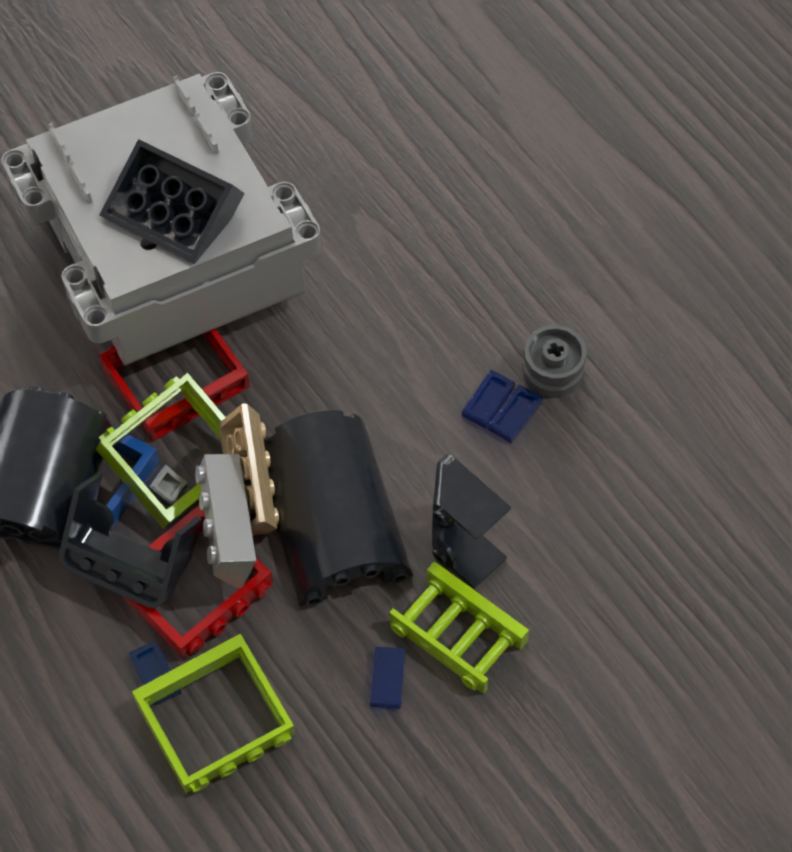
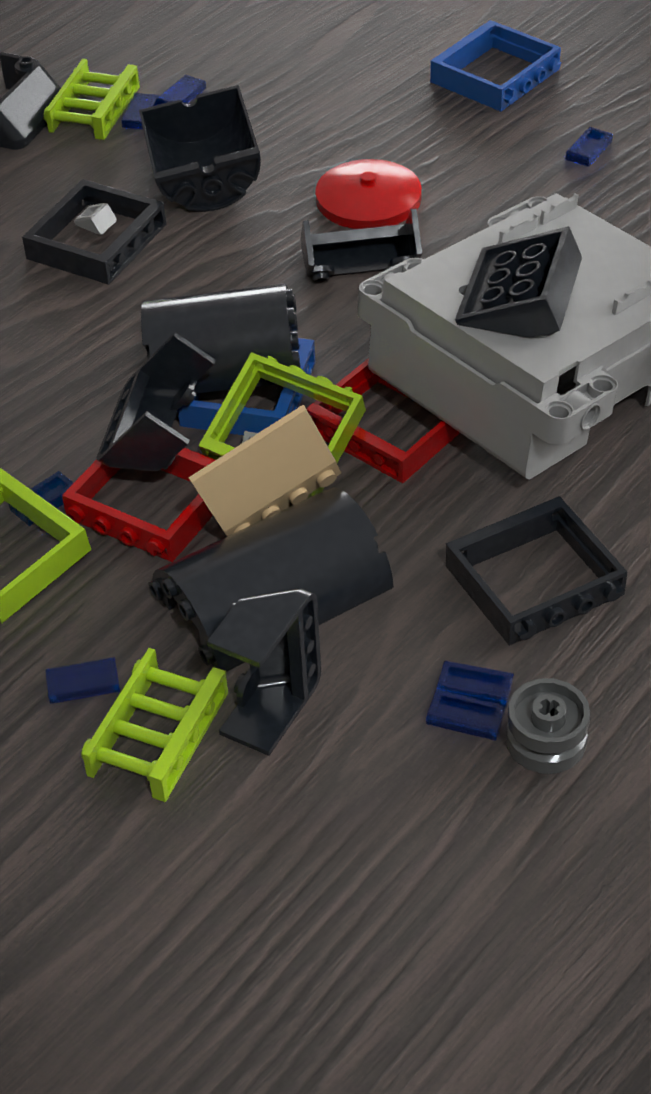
camera: 75 degrees right, 15 degrees down
(226, 517) = (163, 472): light grey slope -> none
(387, 278) = (518, 531): none -> black window

